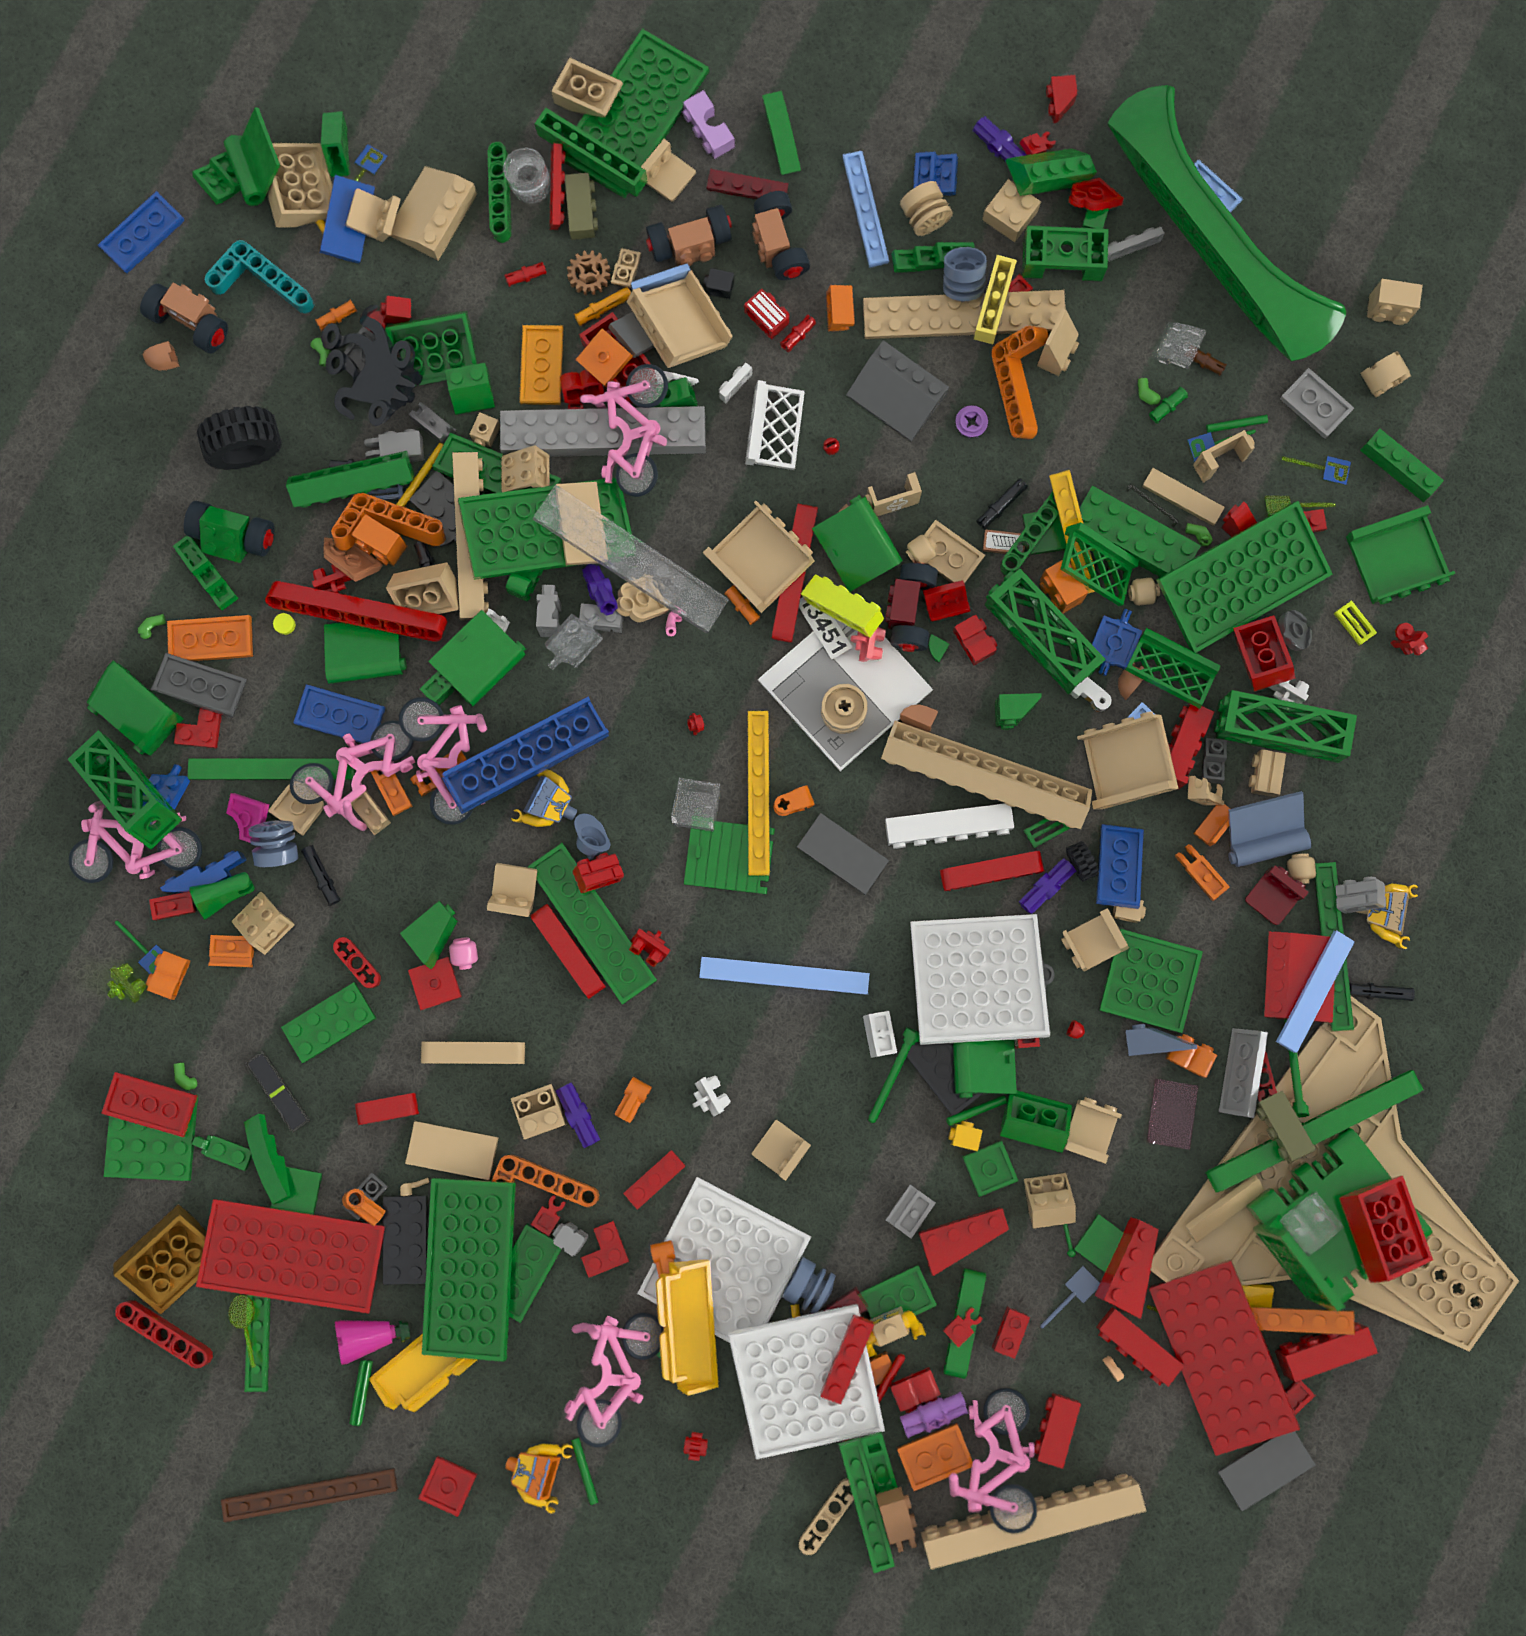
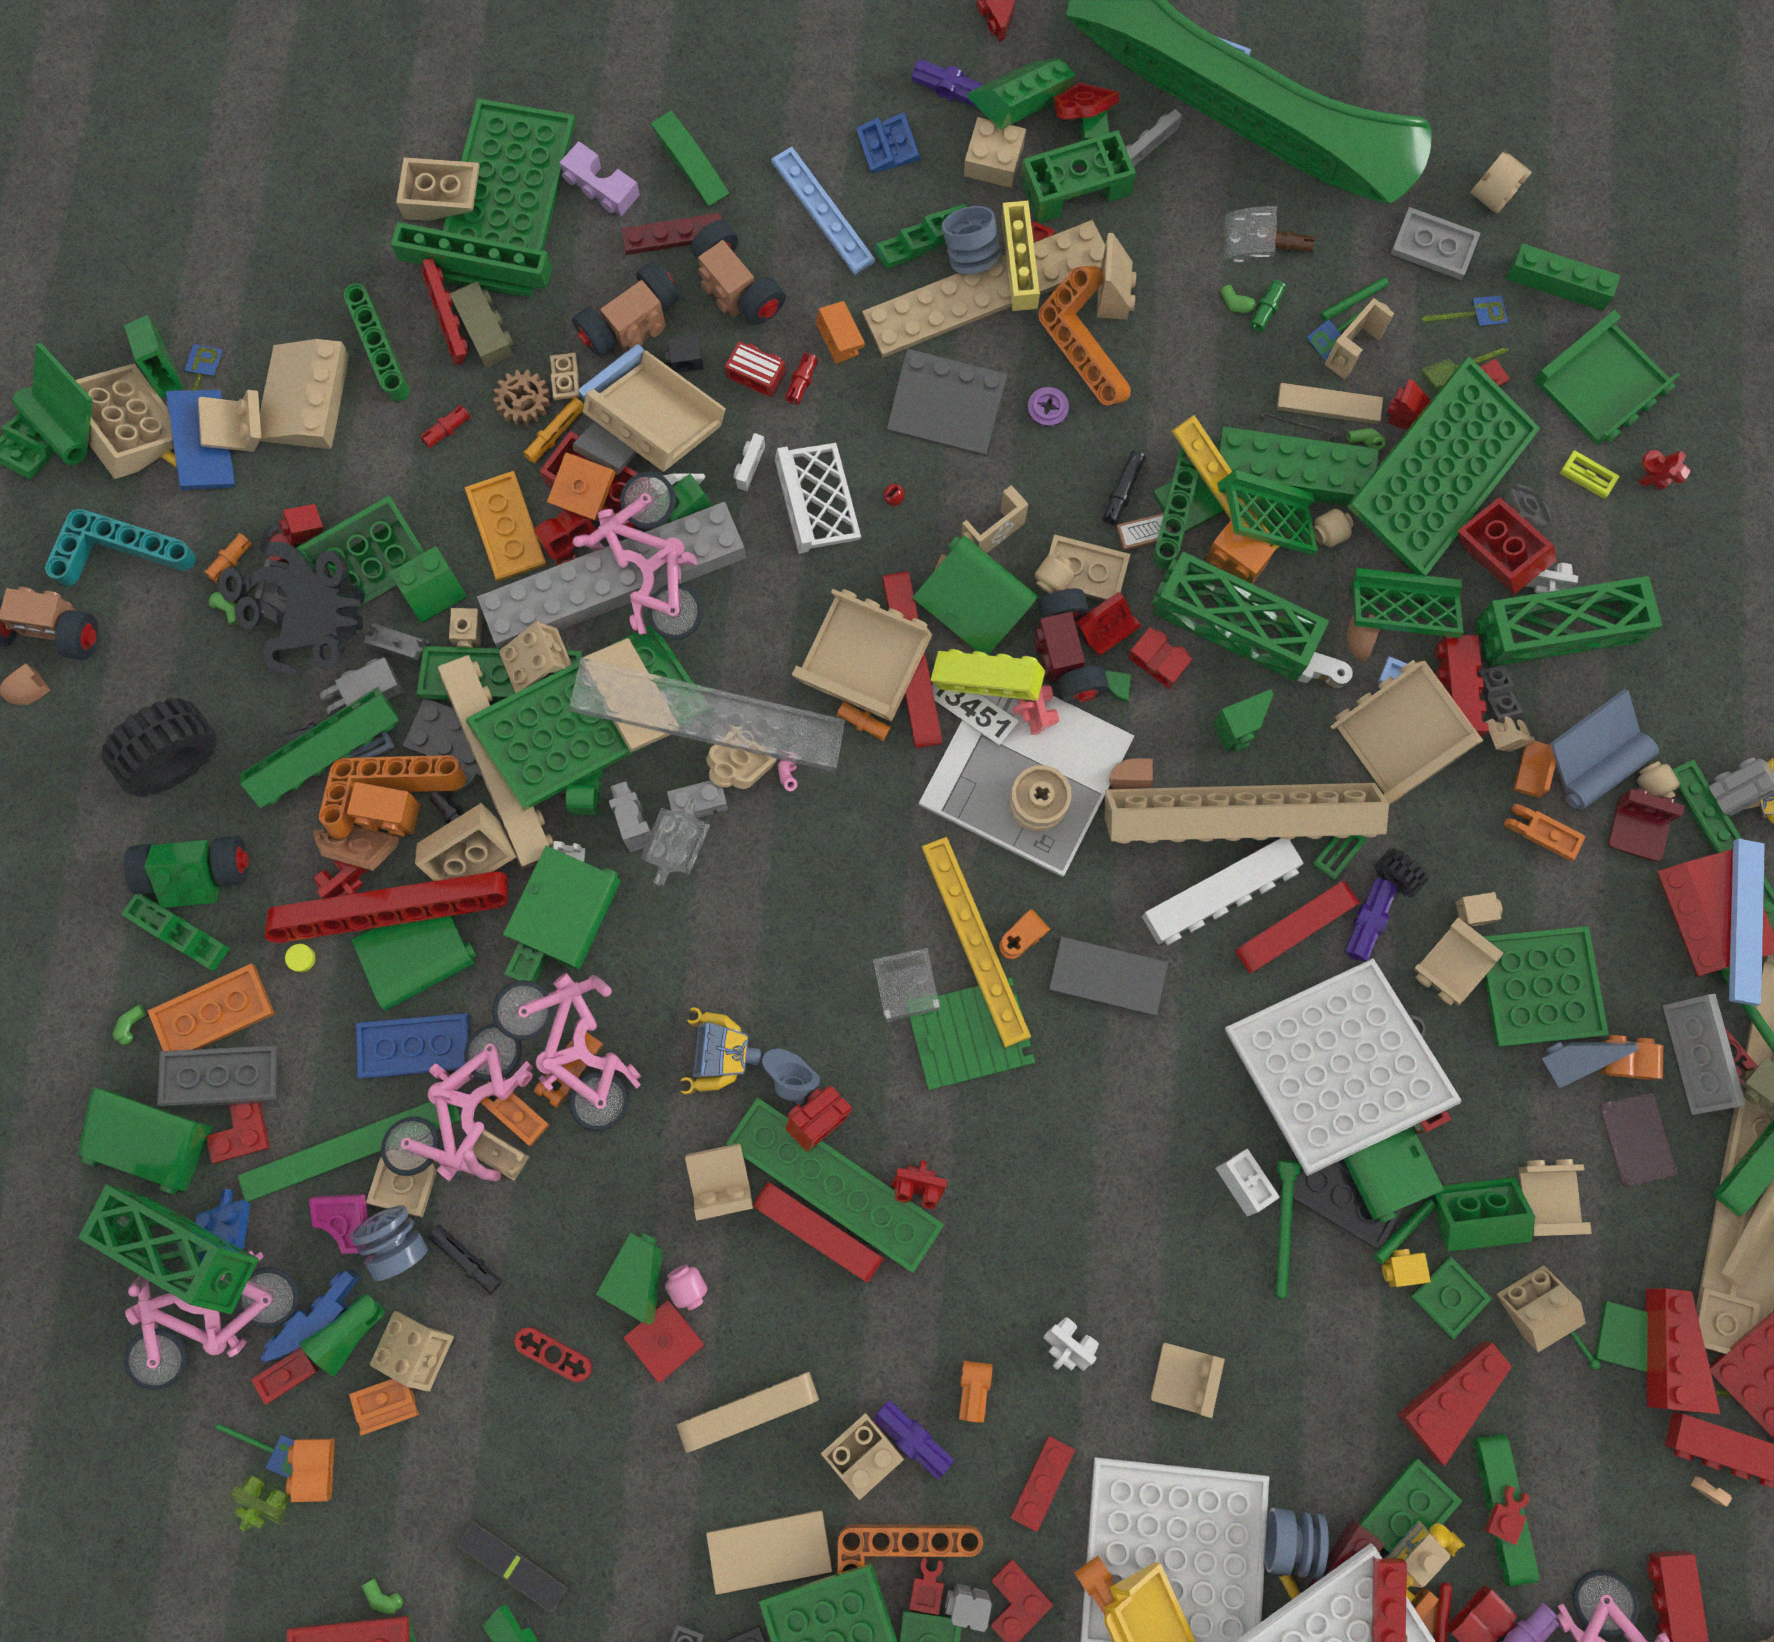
camera: 25 degrees left, 5 degrees down
(328, 1022) = (545, 1448): green plate -> none
(386, 1108) = (664, 1531): red beam -> none
(406, 1189) = (729, 1627): tan hand -> none
(419, 477) = (406, 713): yellow bar -> none
(524, 755) = (668, 1006): blue tile -> none
(525, 165) = (404, 309): clear wheel -> none
(600, 589) = (683, 765): dark purple piece -> none
(667, 172) = (571, 250): tan bracket -> none
(695, 723) = (864, 885): red plate -> none
(784, 975) = (1098, 1155): light blue tile -> none
(910, 1211) = (1378, 1392): light grey plate -> none
(926, 208) = (895, 182): tan wheel -> none
(1010, 1332) = (1568, 1498): red brick -> none
(1035, 144) = (991, 69): red plate -> none
(1075, 1030) = (1484, 1082): red hinge -> none
(1082, 1285) = (1625, 1400): sand blue piece -> none
(1116, 641) = (1327, 596): blue plate -> none
(1120, 866) = (1449, 861): blue tile -> none
(1267, 773) = (1569, 685): tan brick -> none
(1394, 301) = (1474, 98): tan brick -> none

